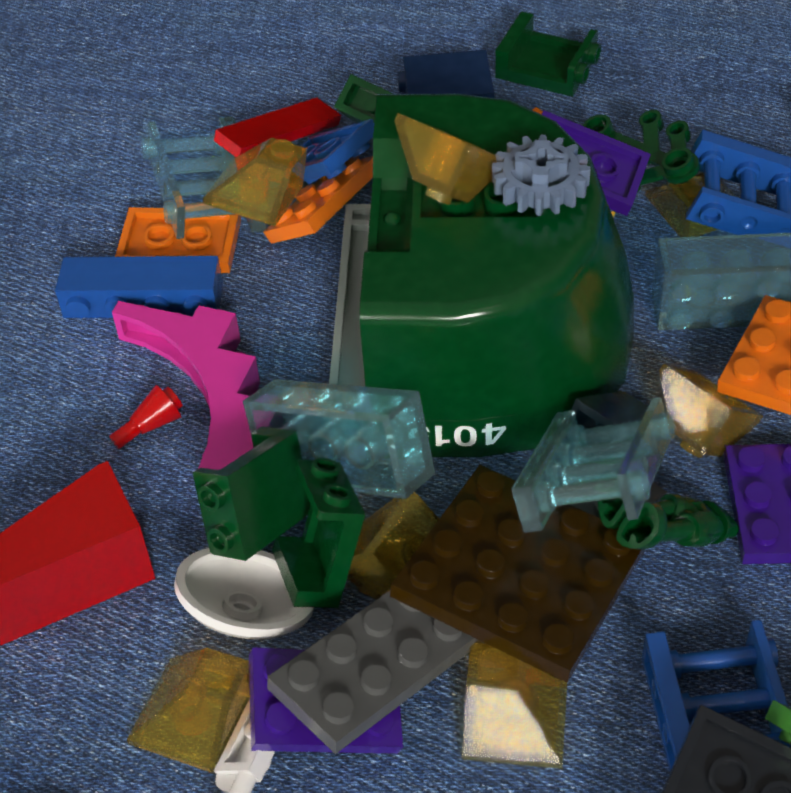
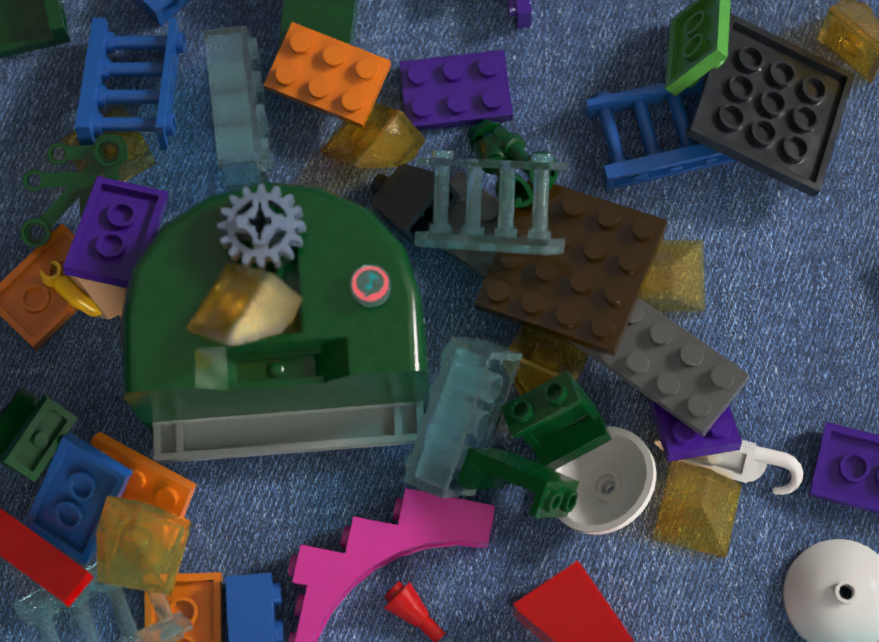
camera: 95 degrees left, 25 degrees up
(464, 266) = (370, 285): none -> clear light blue tile

